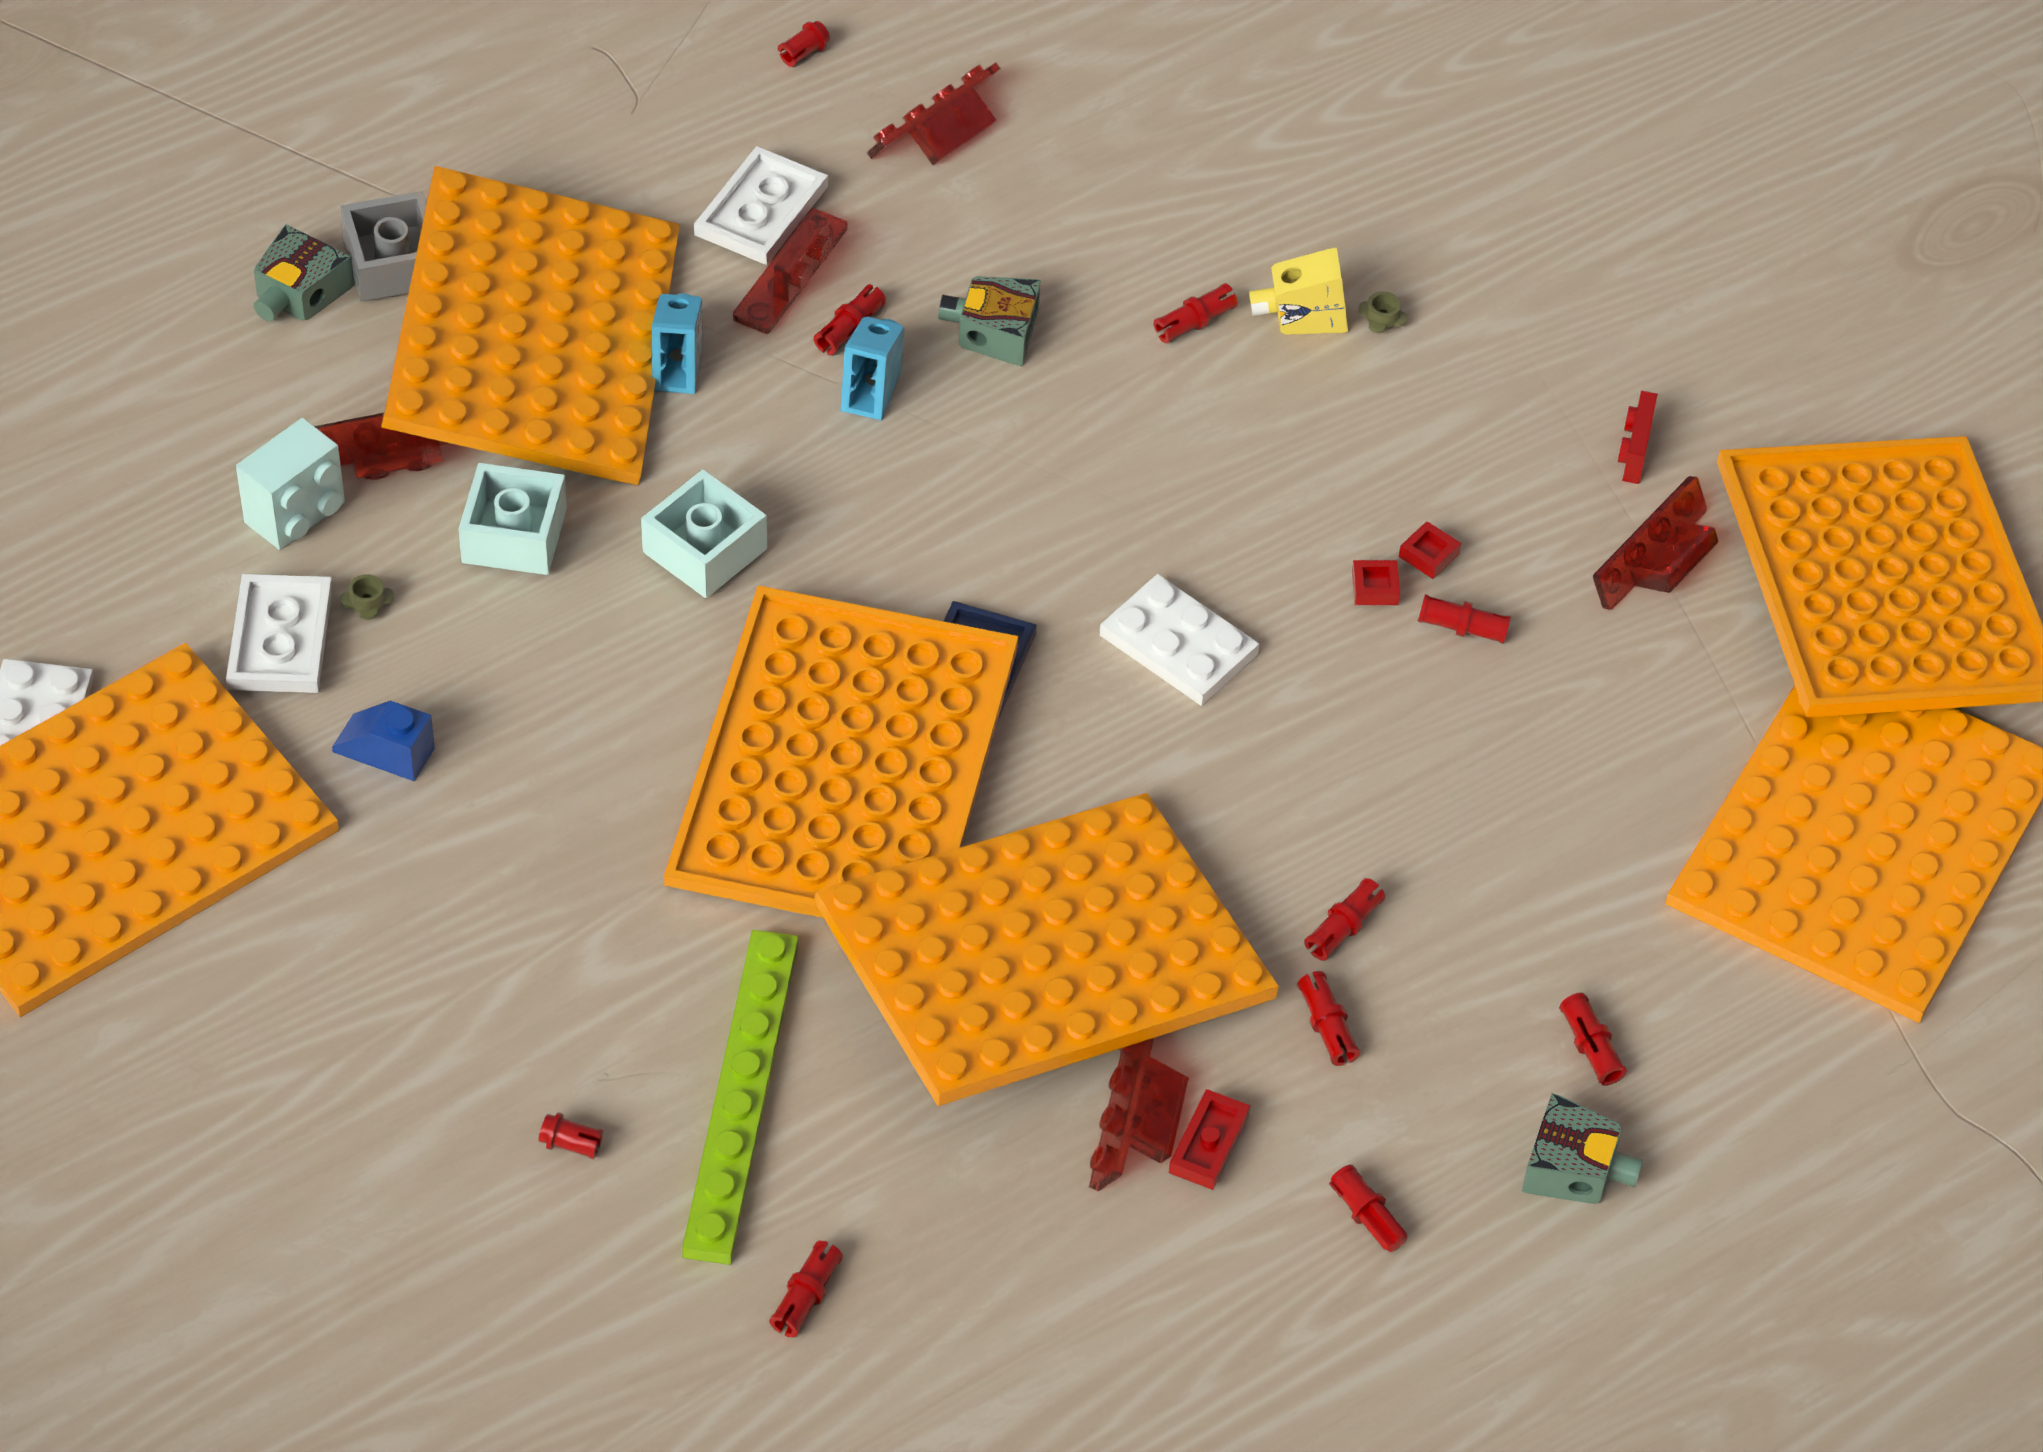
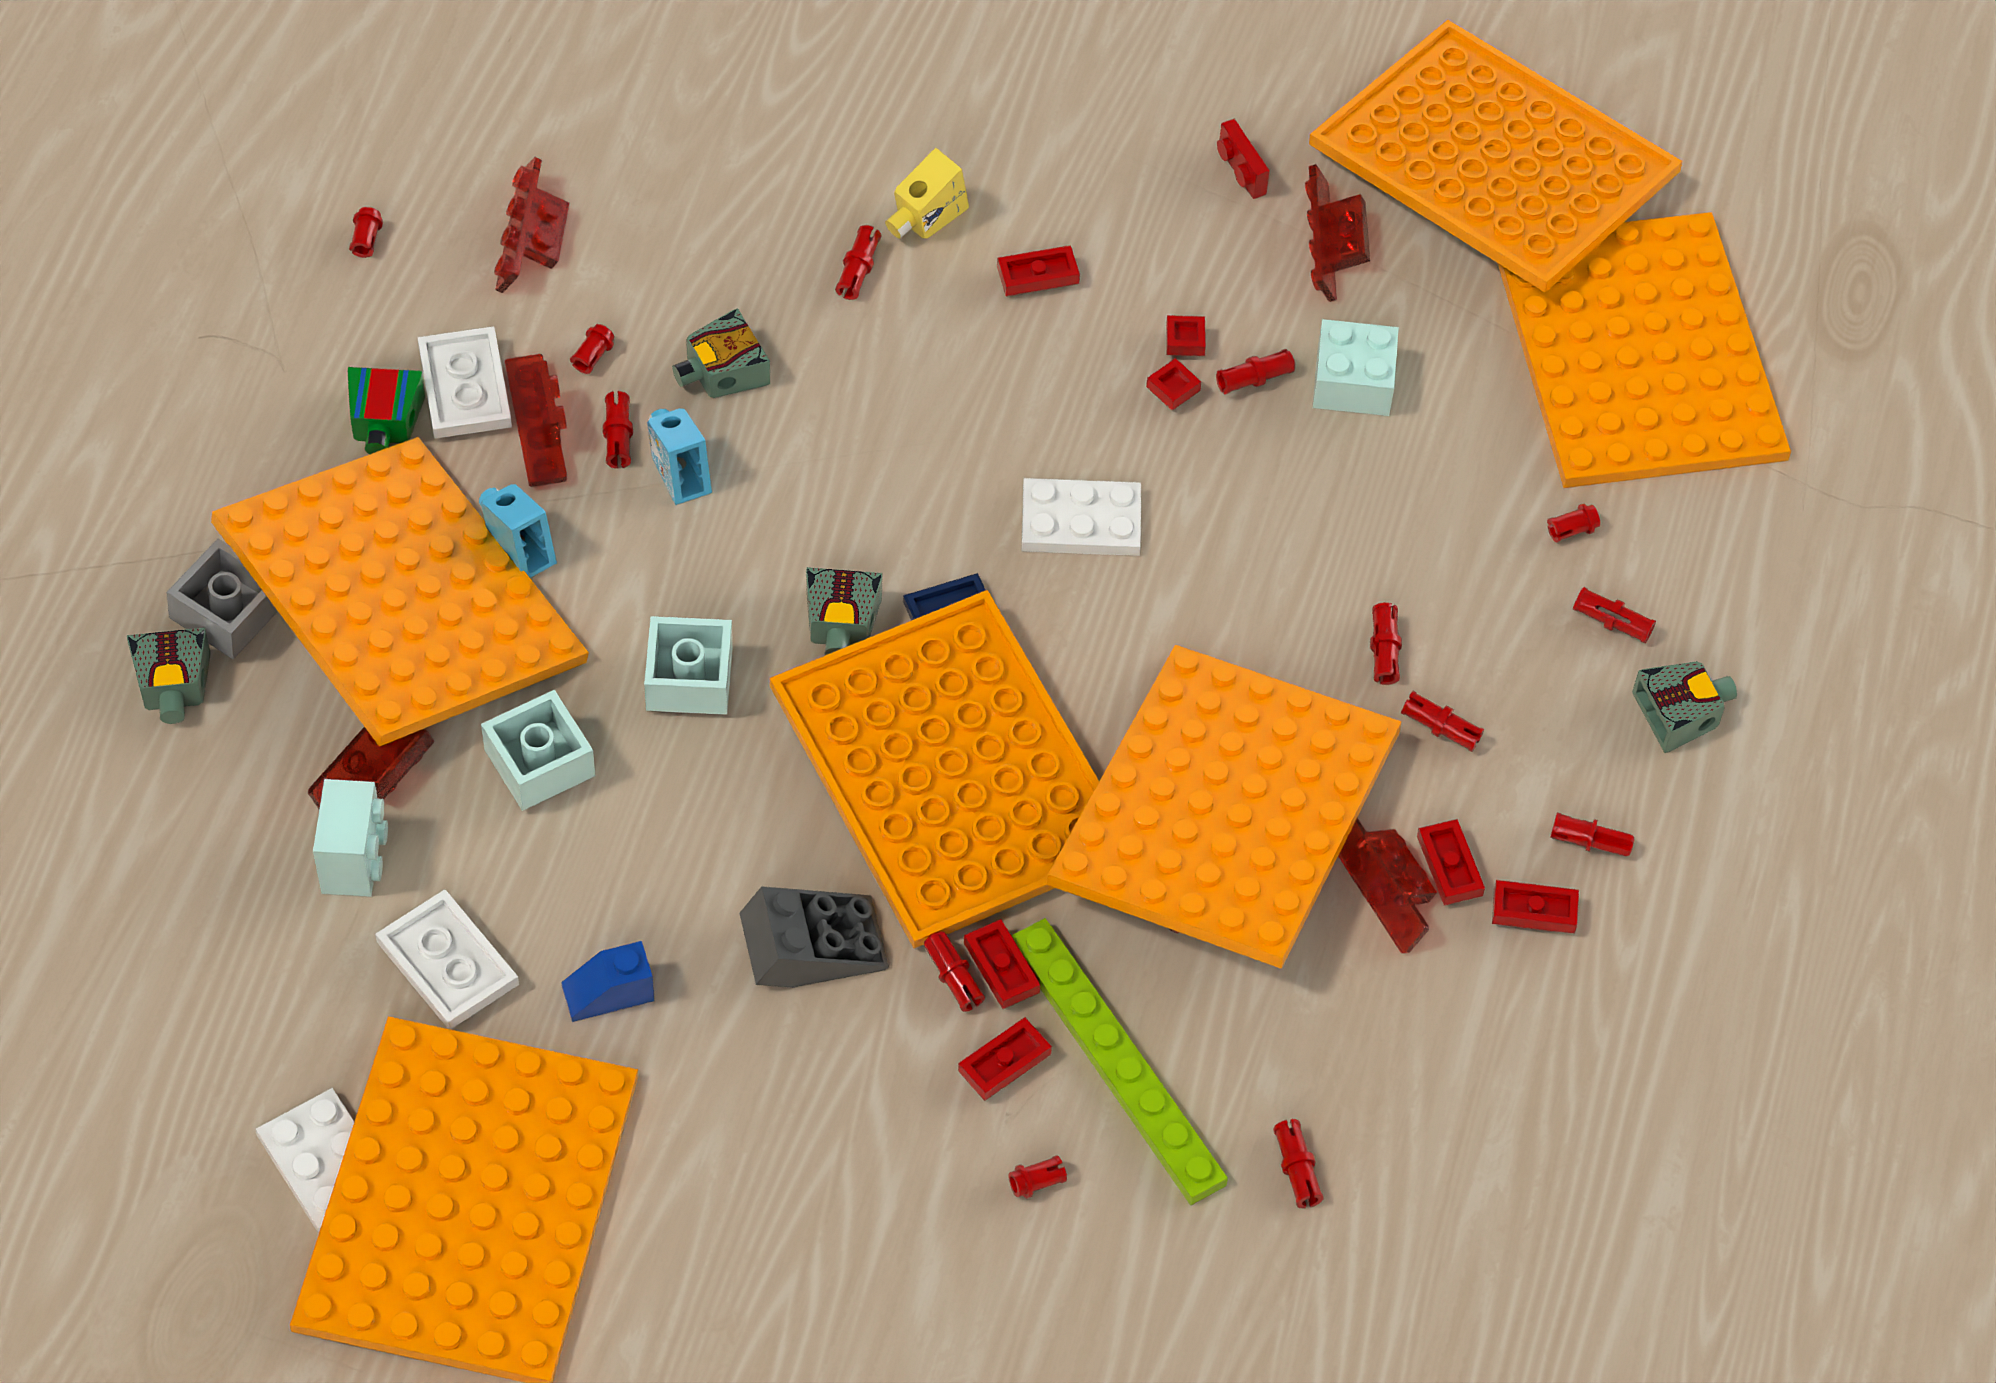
camera: 40 degrees left, 5 degrees up
(366, 596) = (478, 876): olive plate -> none
(587, 815) = (811, 936): none -> dark grey slope
(643, 1023) = (1004, 1058): none -> red plate
(674, 181) = (384, 405): none -> green torso
(675, 924) = (953, 970): none -> red axle
(721, 947) = (1001, 964): none -> red plate
(888, 572) = (841, 606): none -> sand green torso
(895, 243) = (593, 347): none -> red pin
(1249, 1230) = (1535, 906): none -> red plate
(1350, 415) = (1038, 270): none -> red plate
(1383, 311) = (984, 169): olive plate -> none
(1559, 671) = (1355, 367): none -> light aqua brick
(1636, 935) = (1574, 523): none -> red pin

